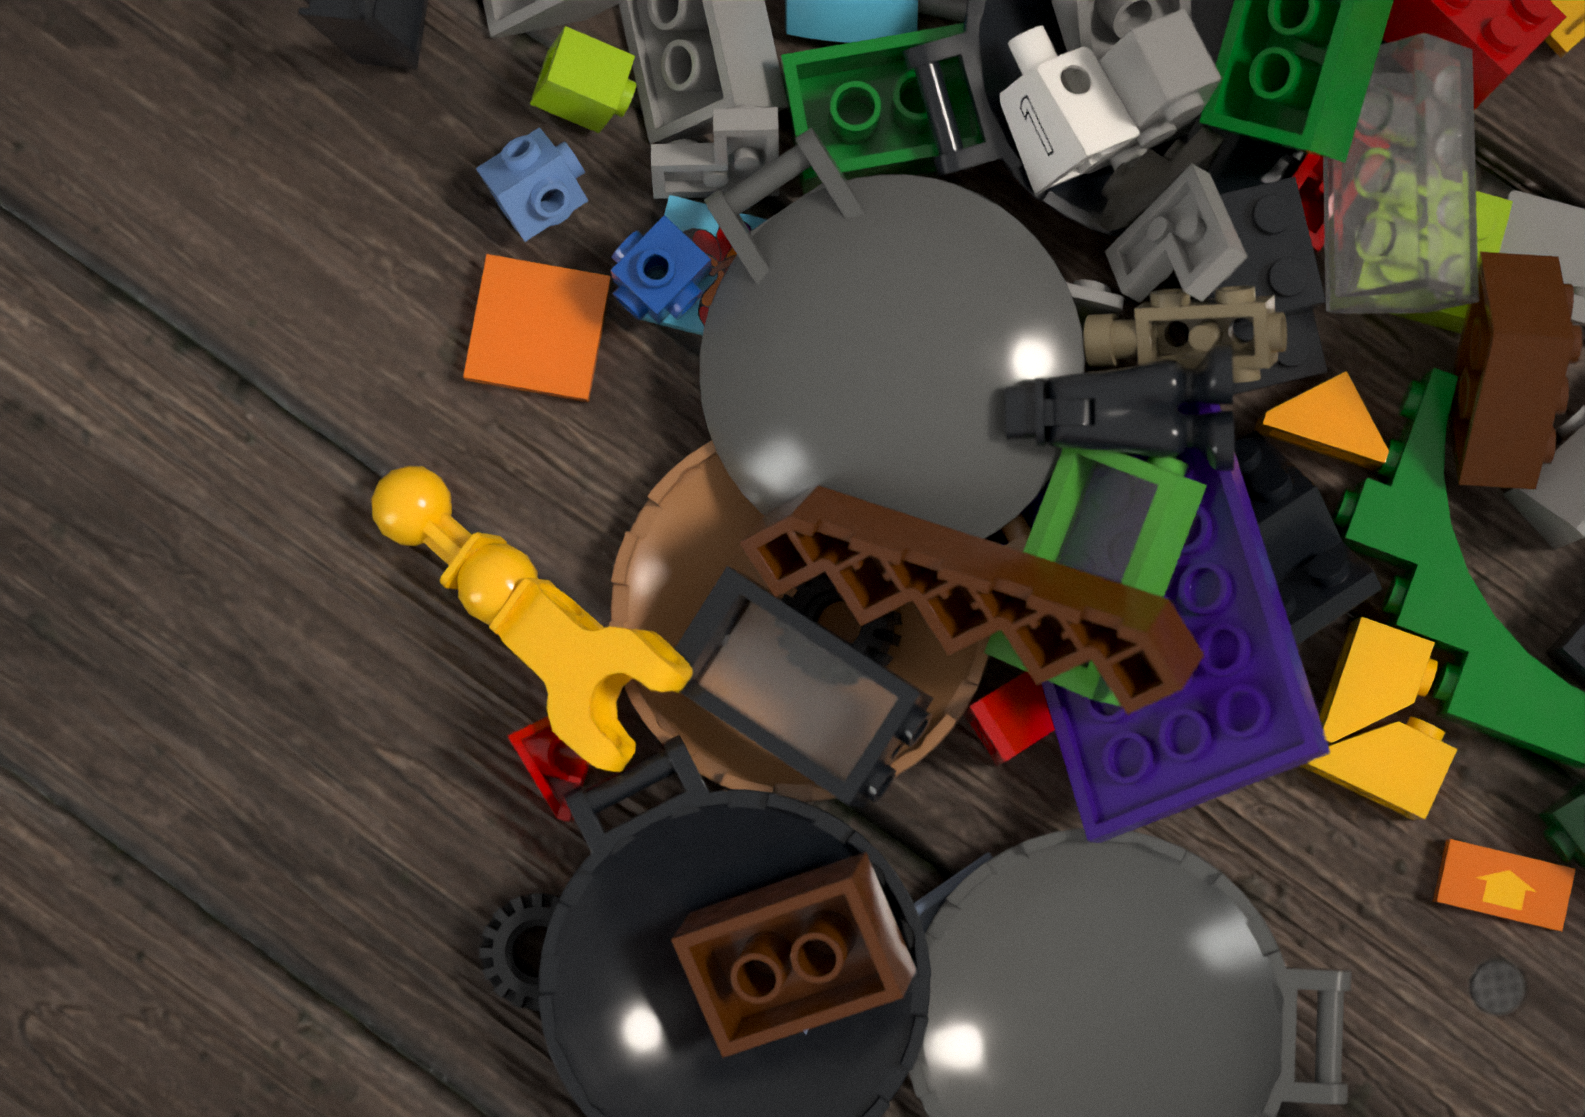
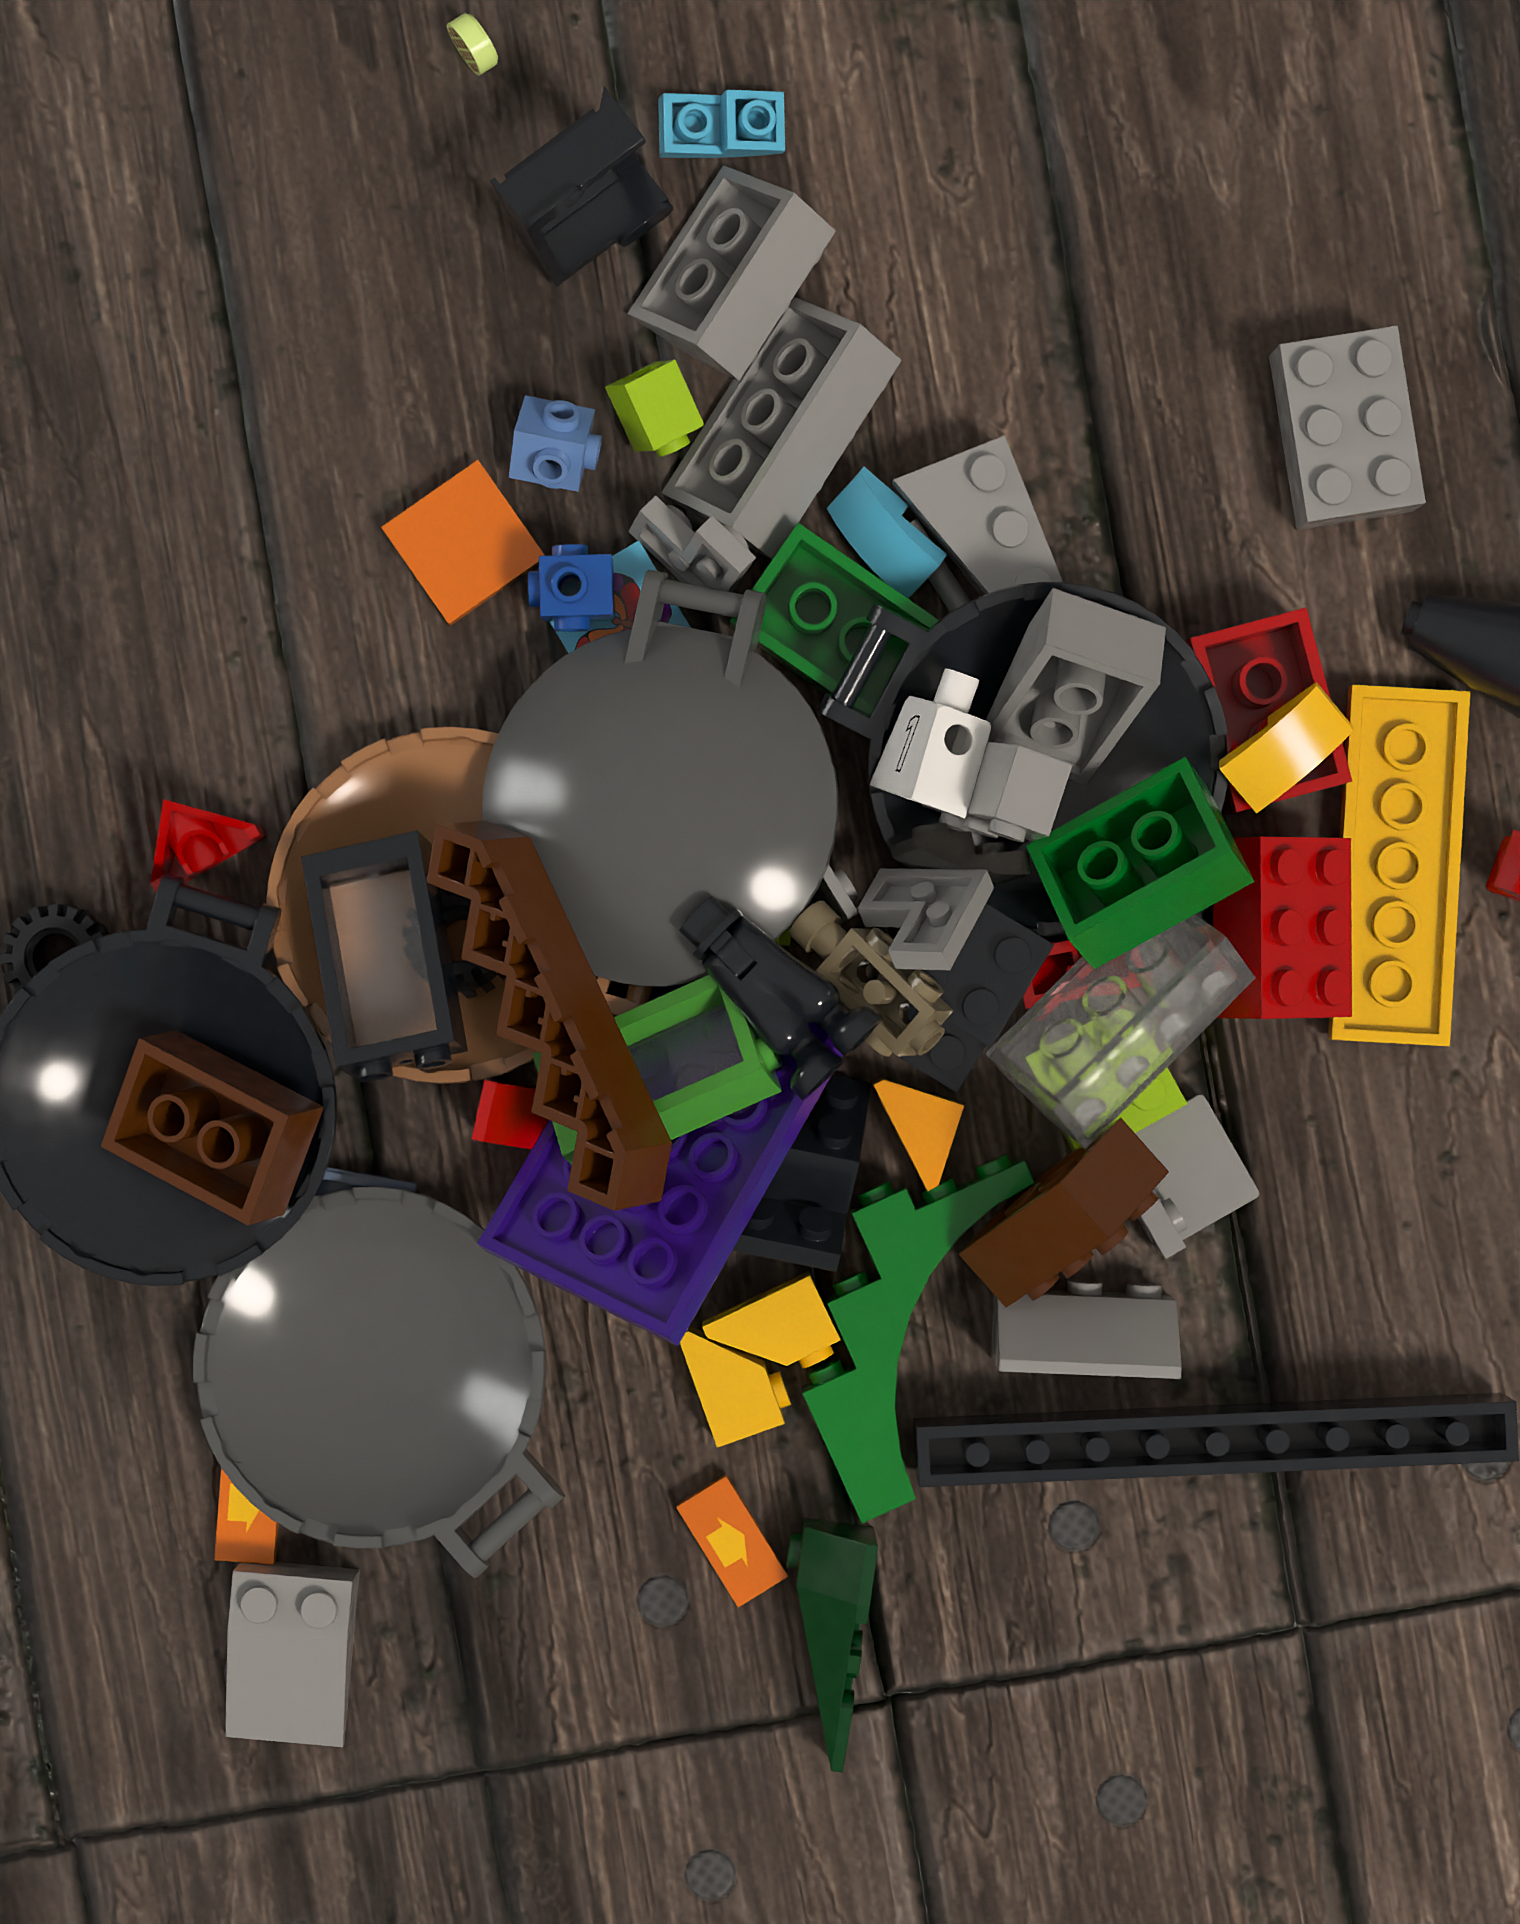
camera: 50 degrees right, 5 degrees up
(535, 620) = (261, 739): yellow piece -> none

